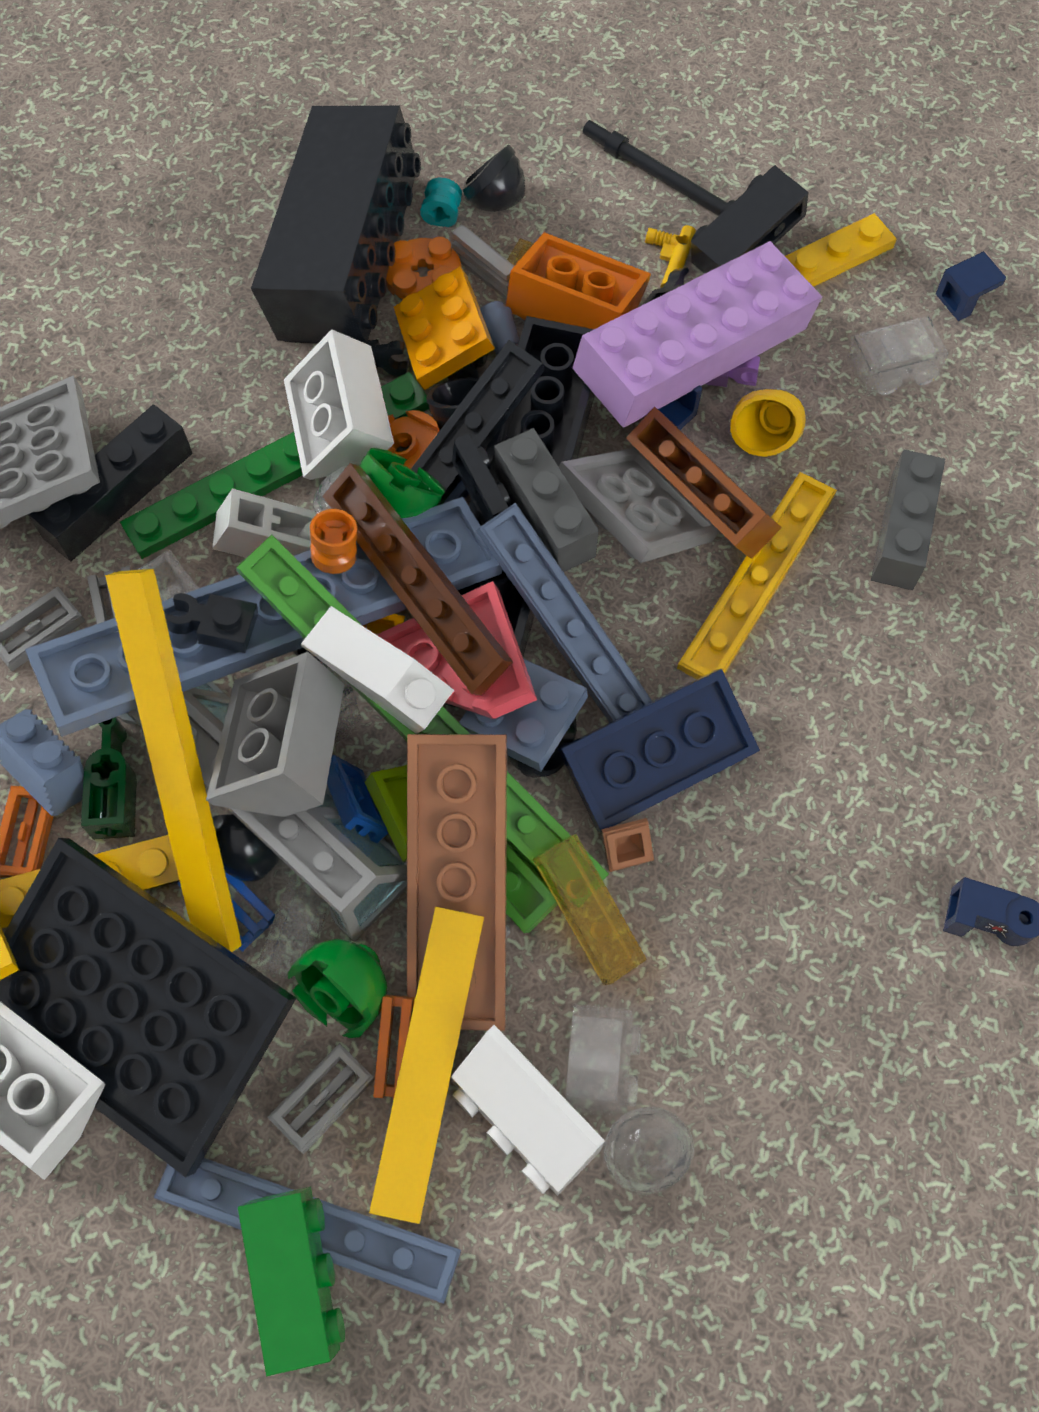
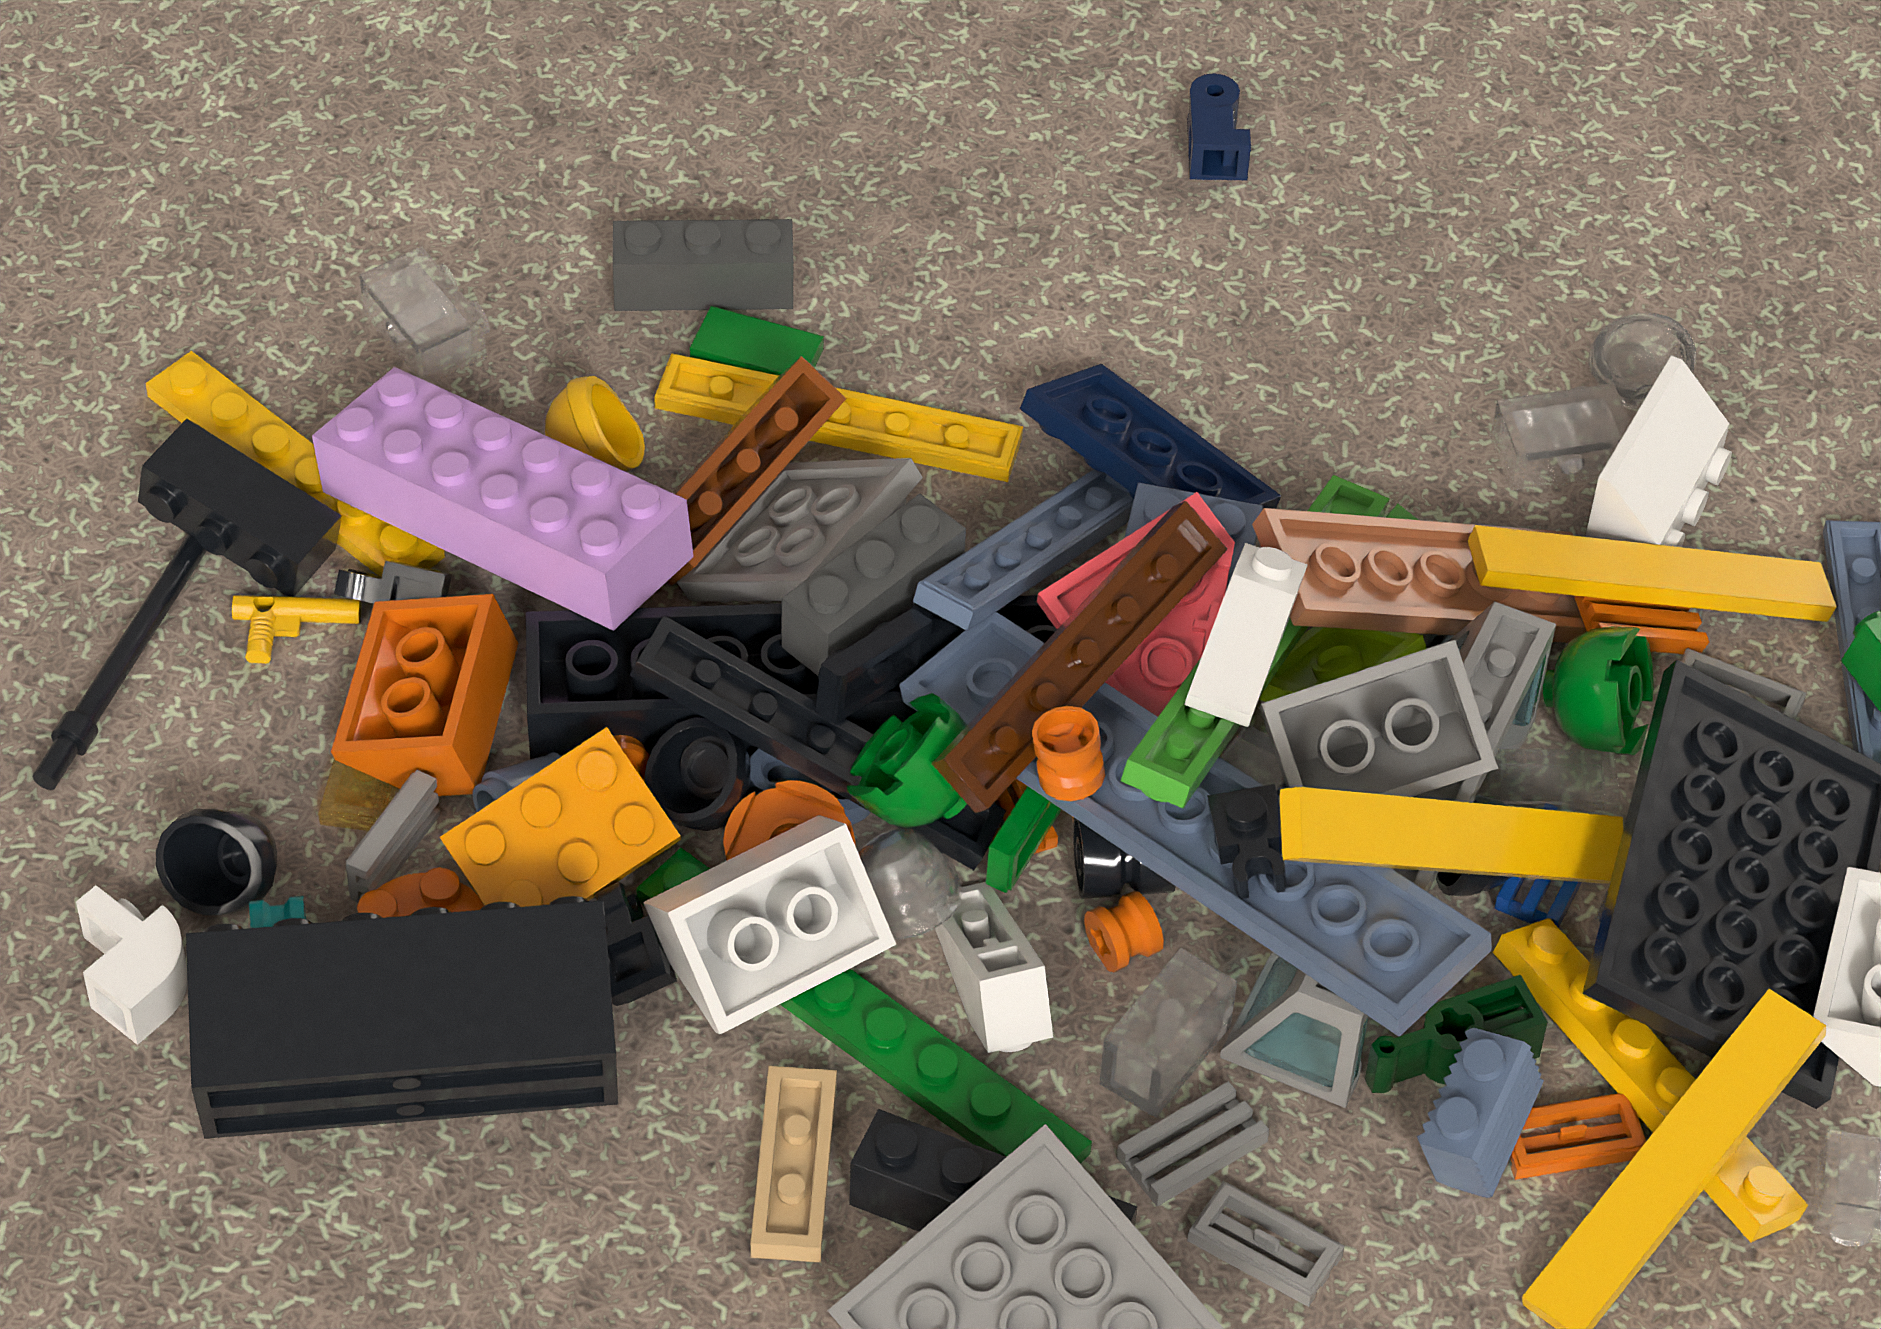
camera: 110 degrees left, 15 degrees down
(193, 402) = (794, 1164): none -> tan plate
(445, 144) = (142, 965): none -> white brick
(589, 909) = (1392, 473): clear yellow tile -> none
(627, 844) = (1281, 471): nougat slope -> none
(833, 544) = (753, 342): none -> green tile
(966, 282) = (267, 253): dark blue panel -> none

